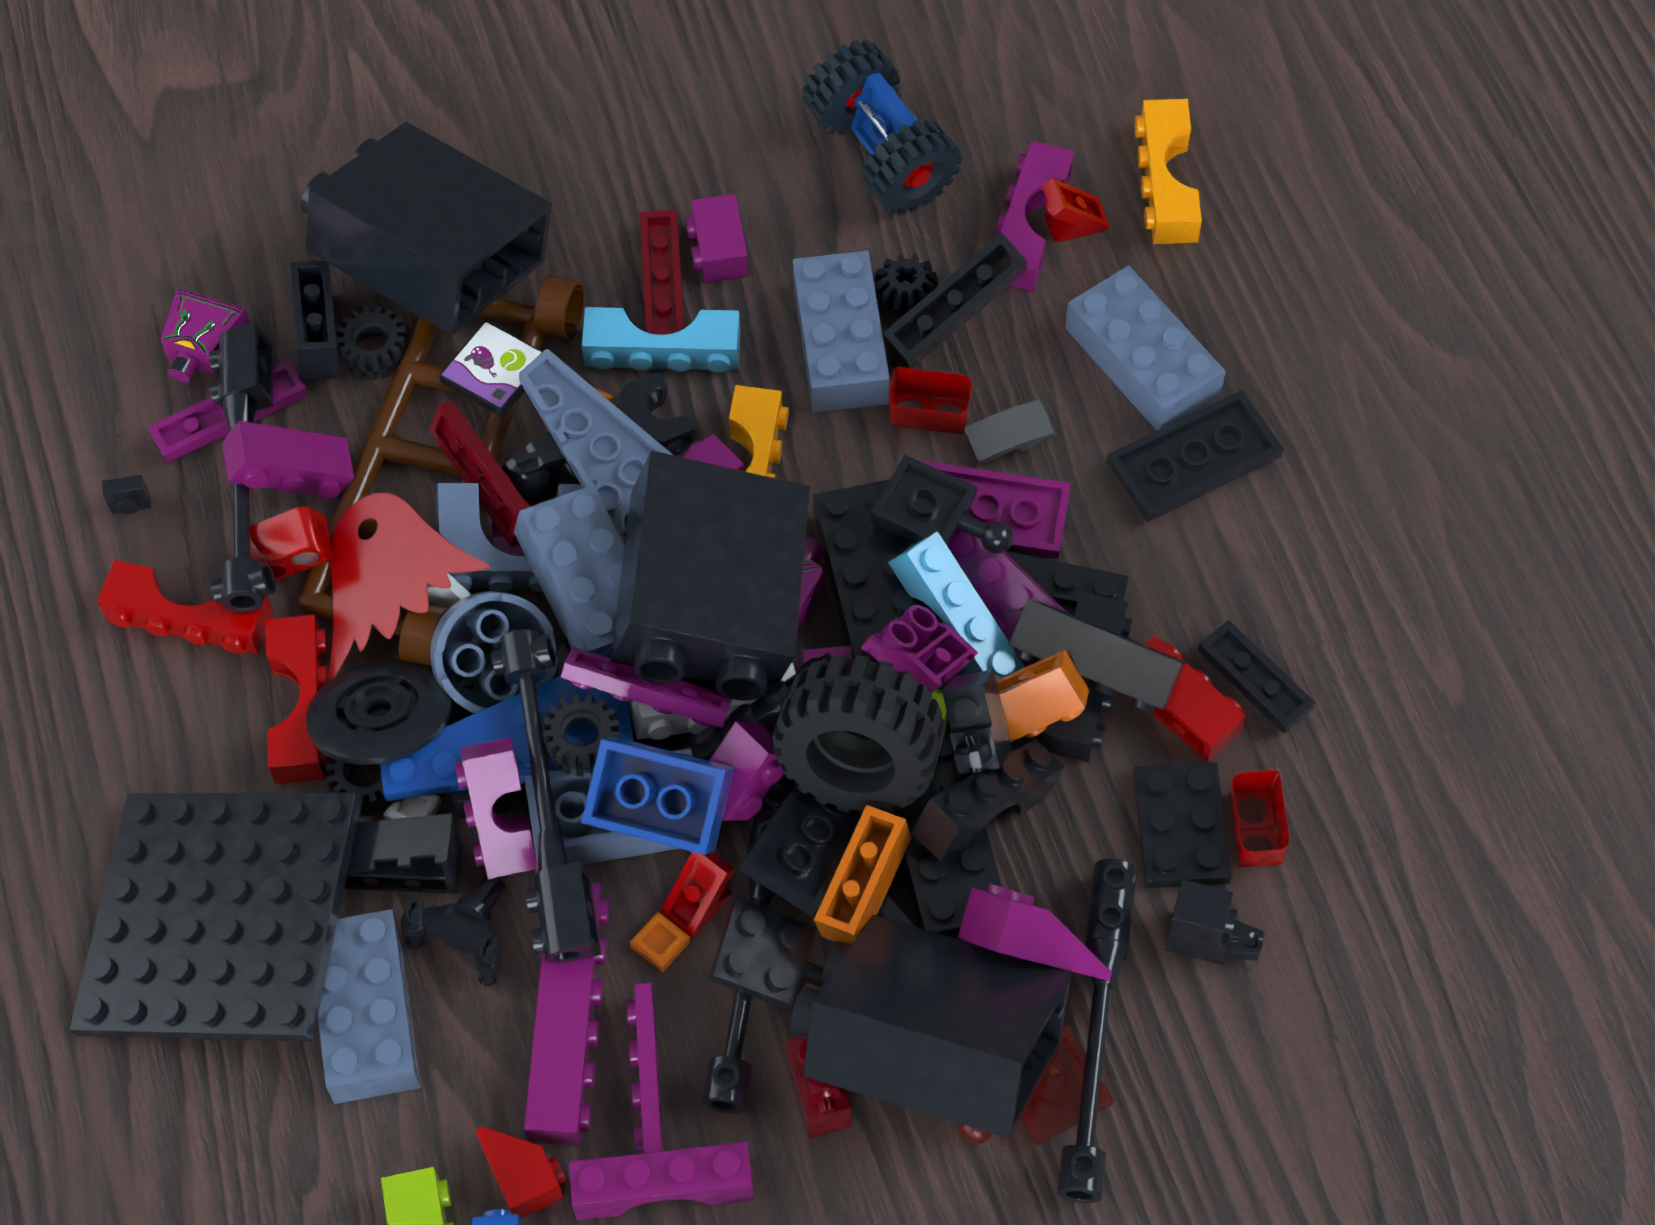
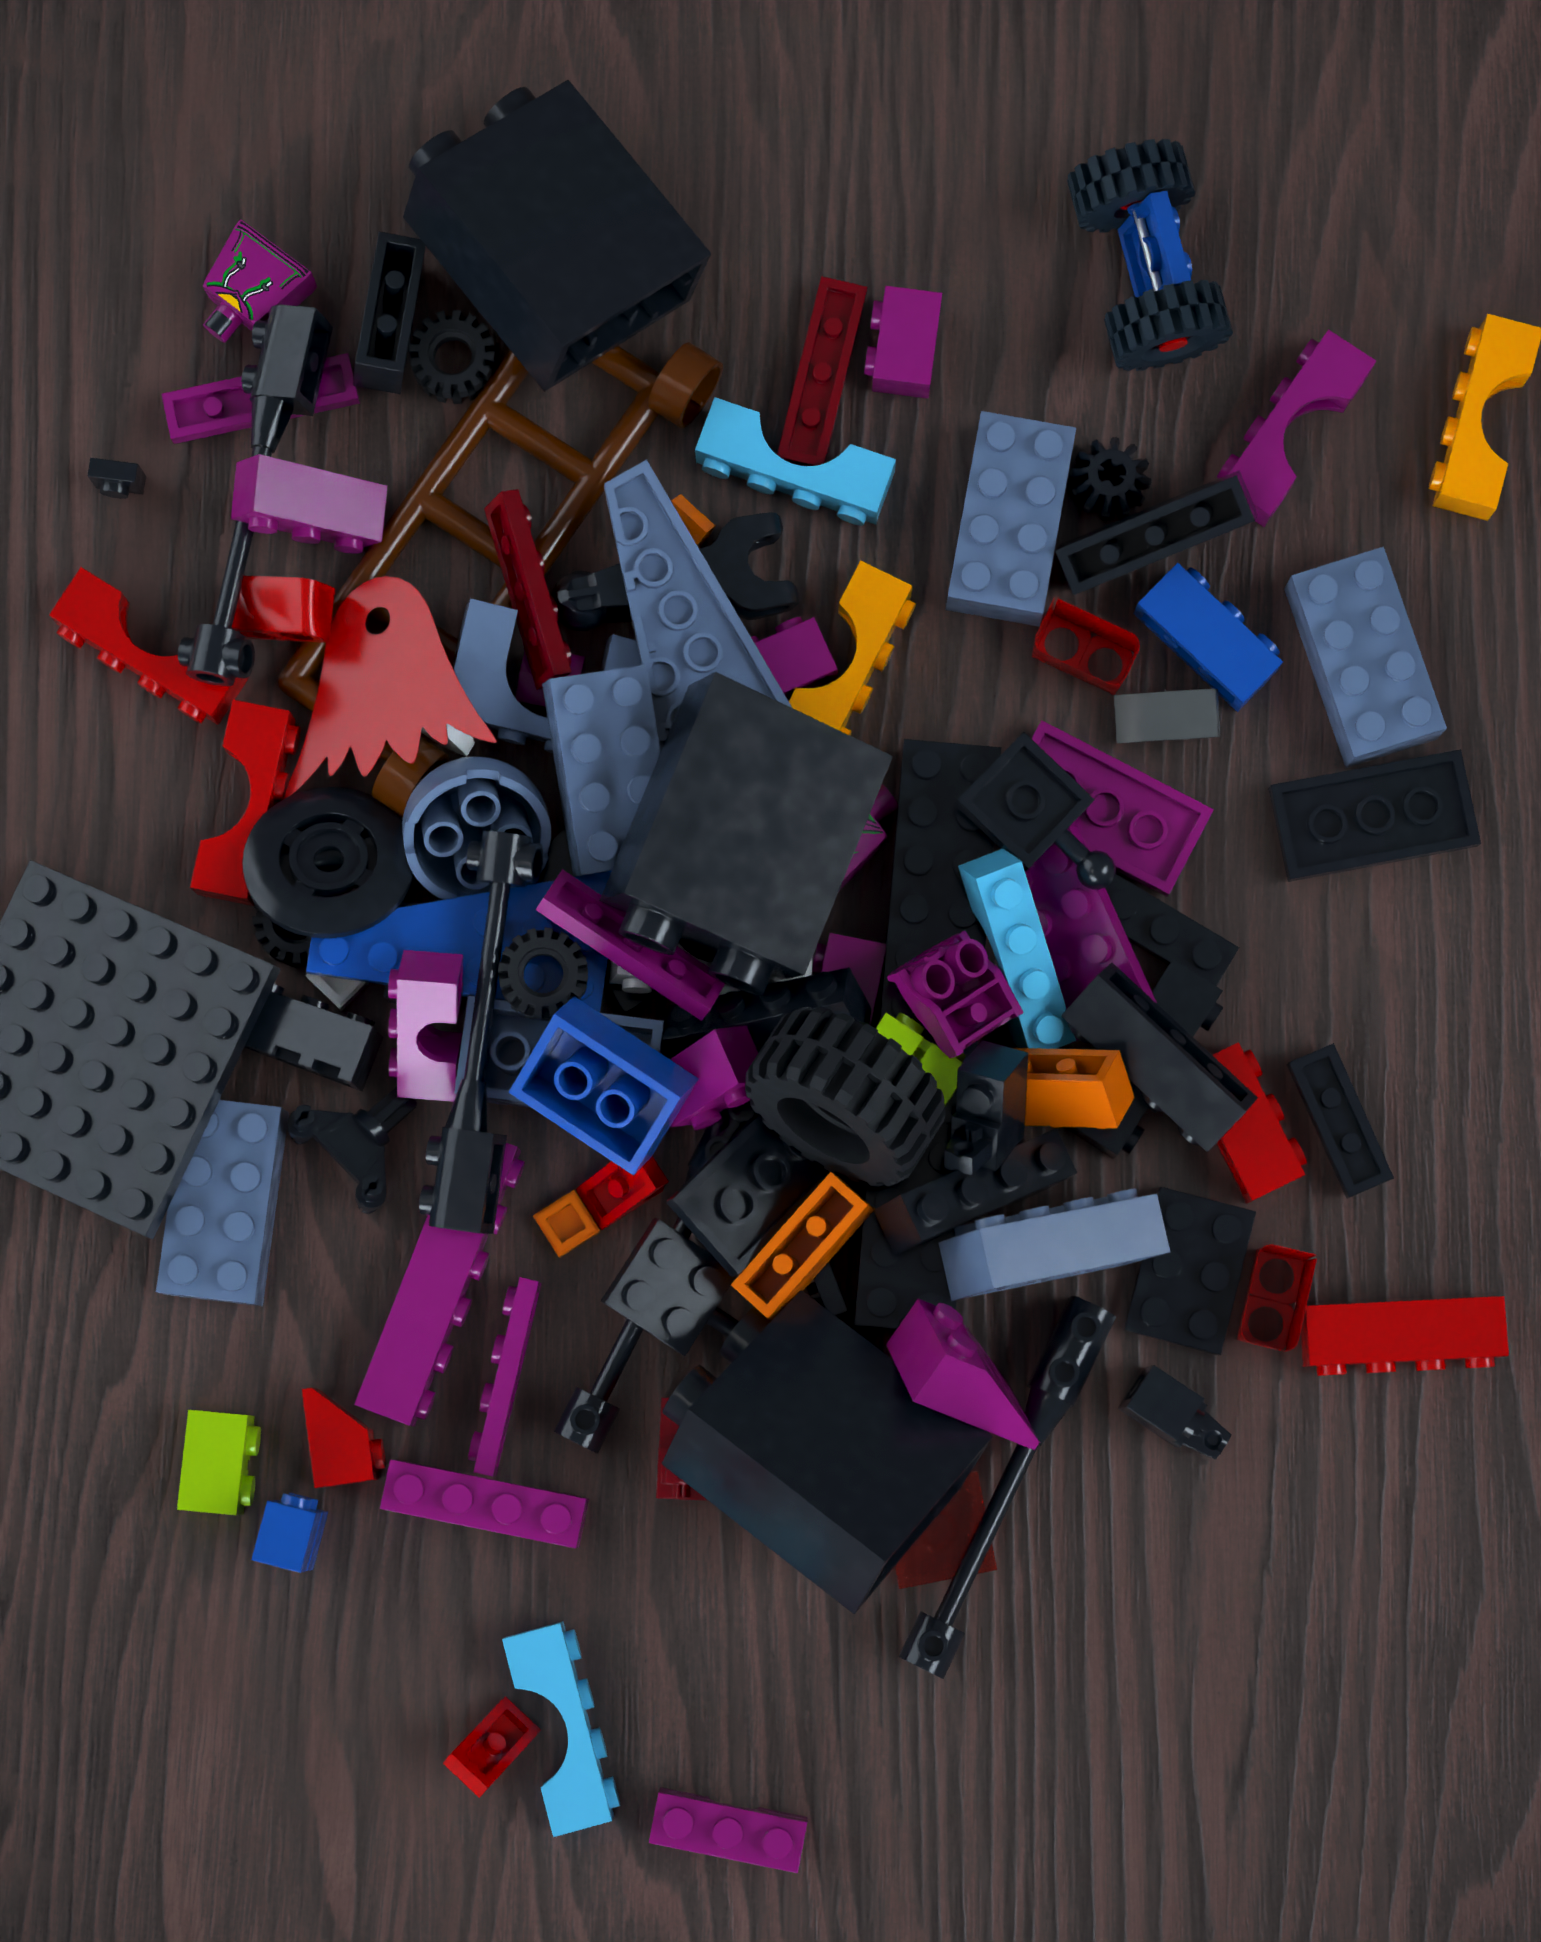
camera: 20 degrees right, 20 degrees up
(490, 368) = (582, 447): tile -> none
(1020, 368) = (1209, 635): none -> blue brick
(1066, 818) = (1053, 1243): none -> sand blue brick
(1072, 212) = (1349, 438): red slope -> none
(1371, 815) = (1404, 1332): none -> red brick

